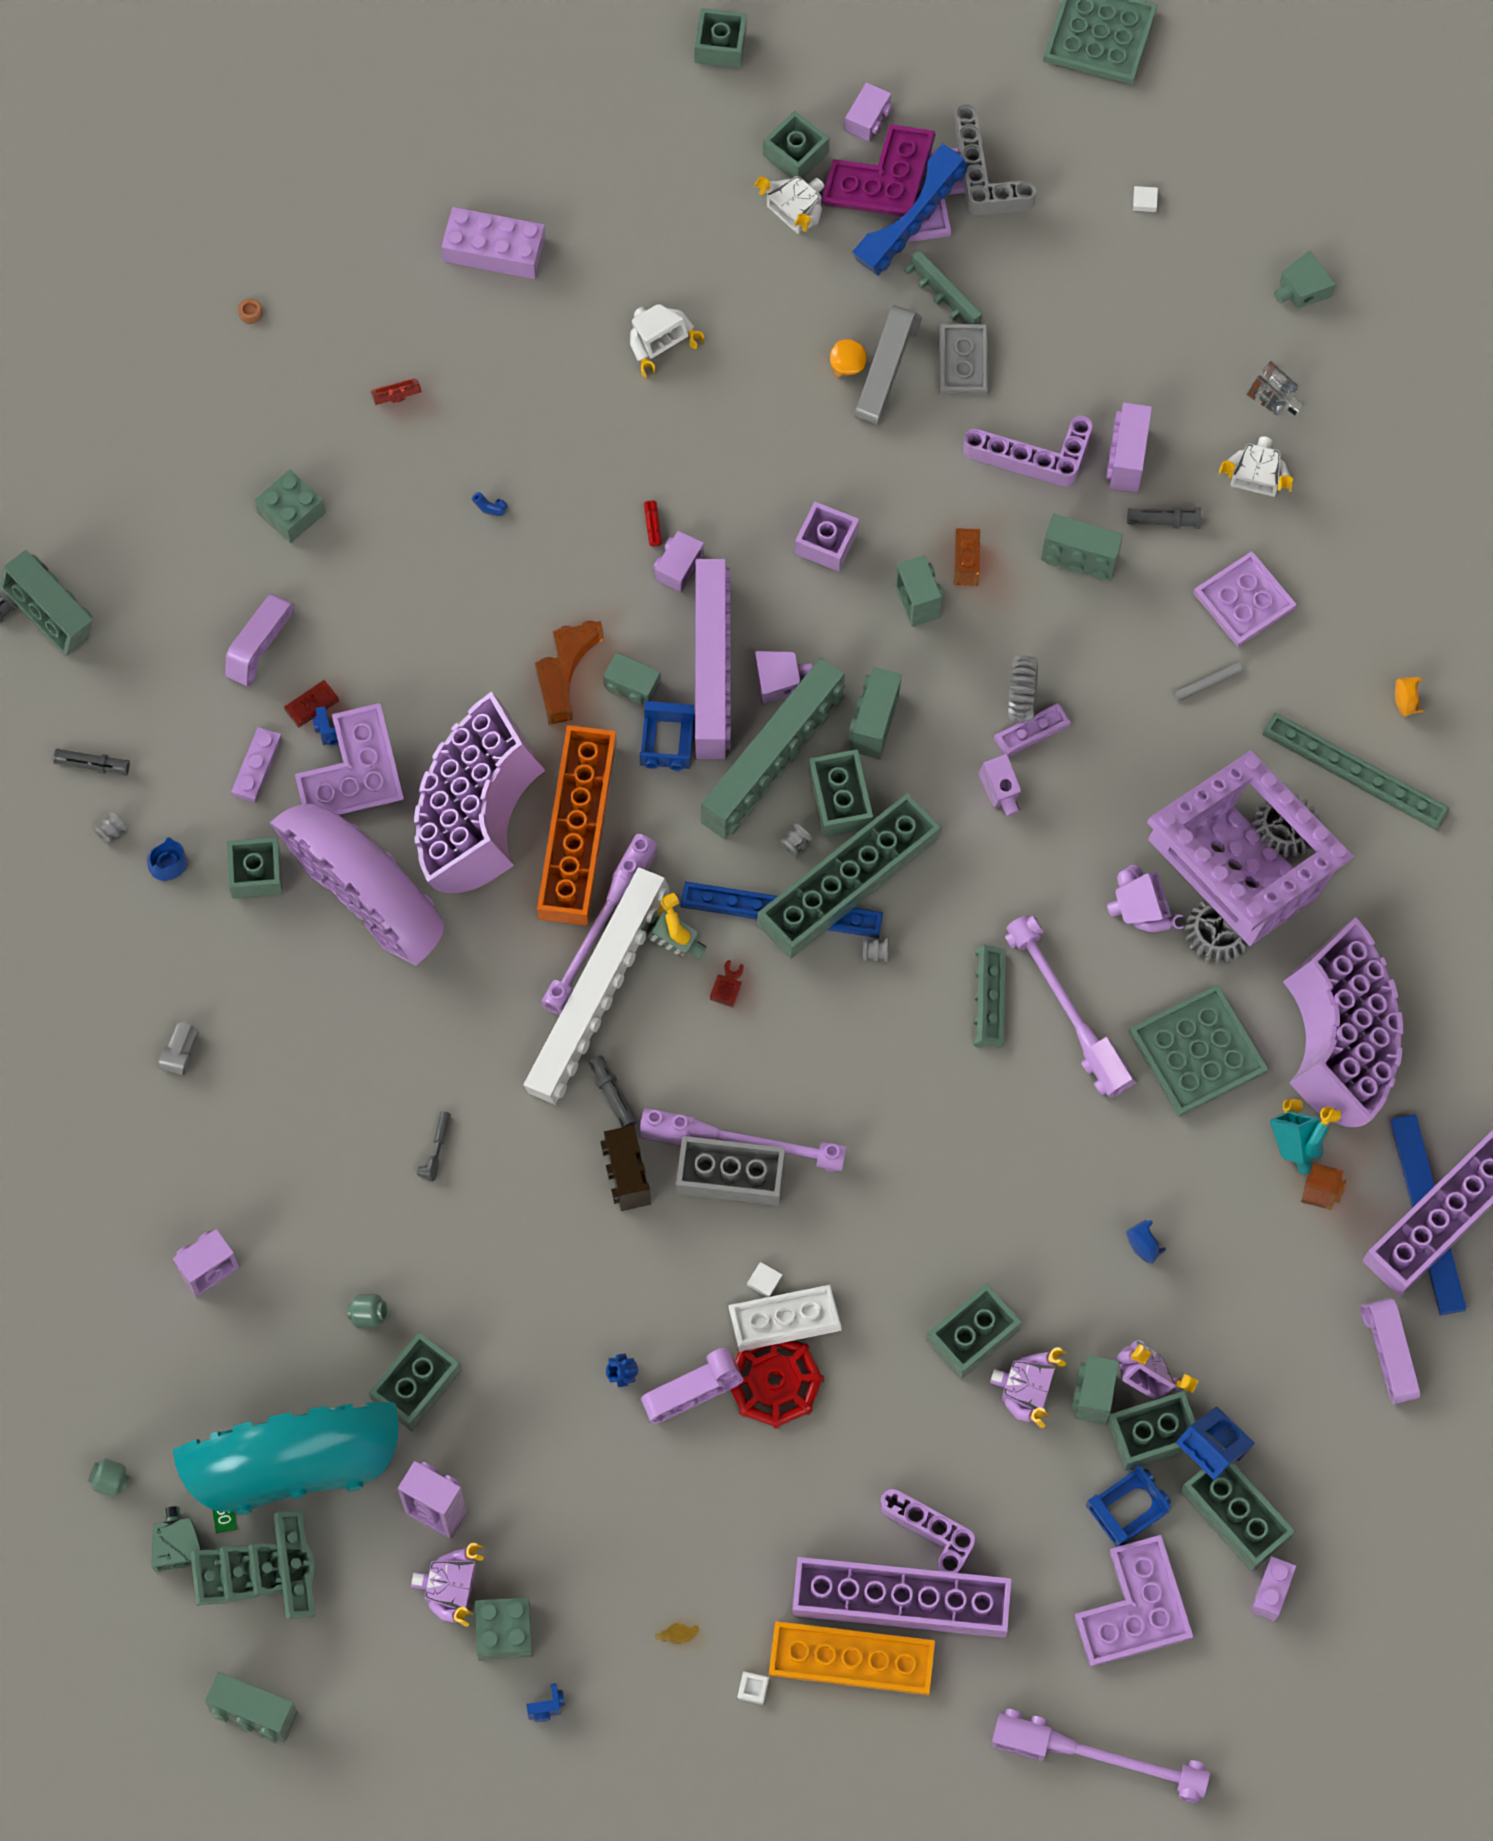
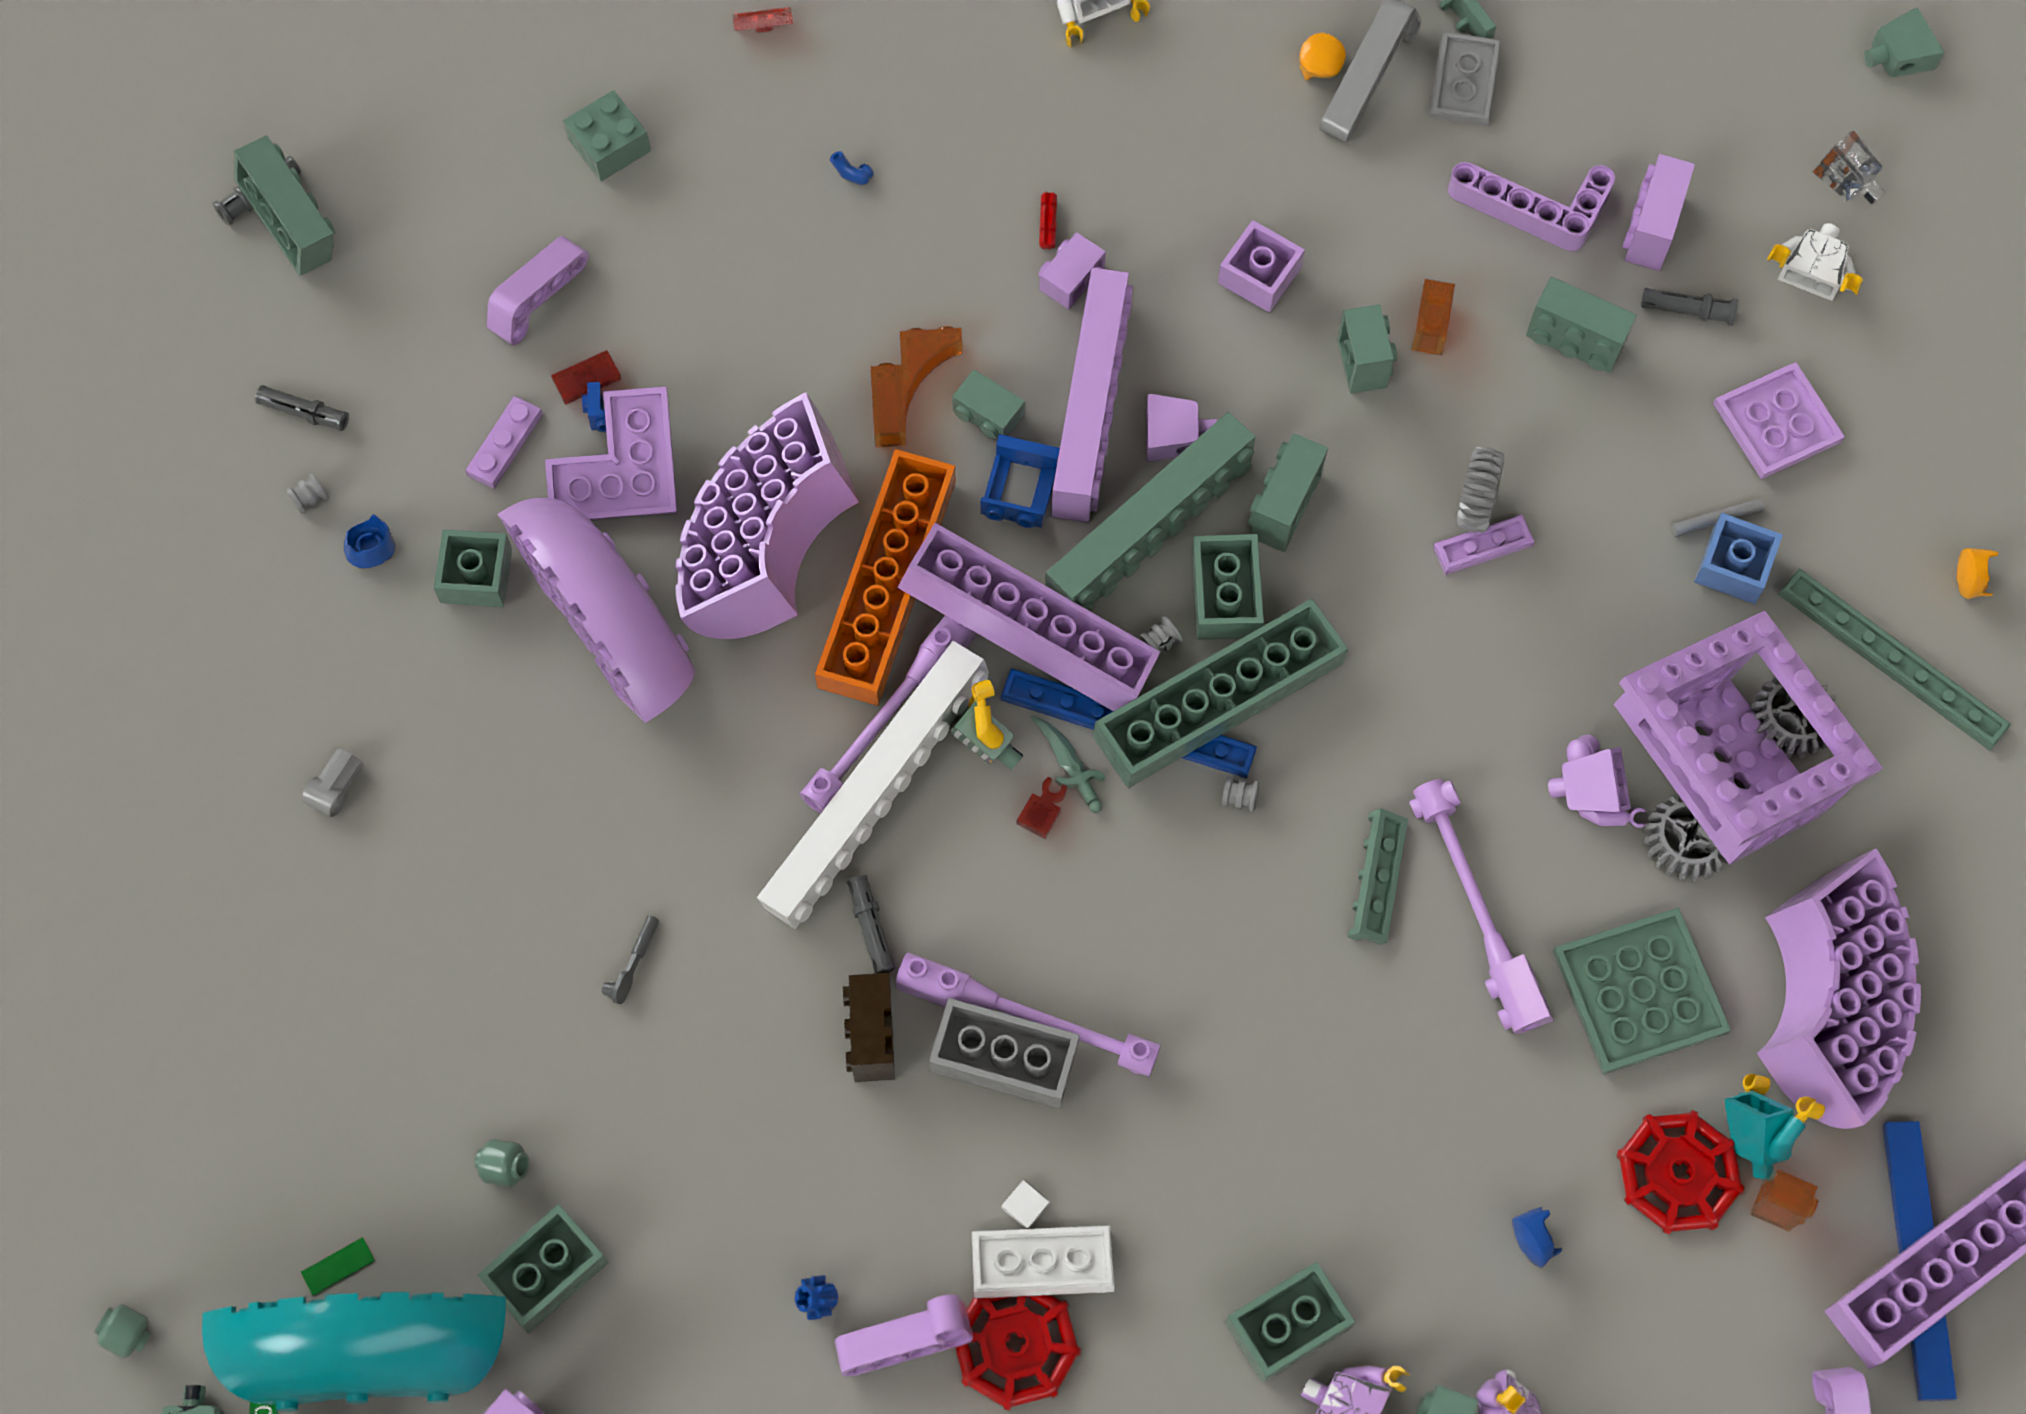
camera: 10 degrees right, 0 degrees up
(205, 1262) = (304, 1065): lavender brick -> none
(258, 1405) = (337, 1266): none -> green sticker
(693, 841) = (1028, 619): none -> lavender brick
(740, 945) = (1068, 760): none -> sand green piece
(999, 775) = (1433, 594): lavender torso -> none
(1227, 712) = (1738, 558): none -> medium blue brick
(1246, 1193) = (1681, 1191): none -> red plate

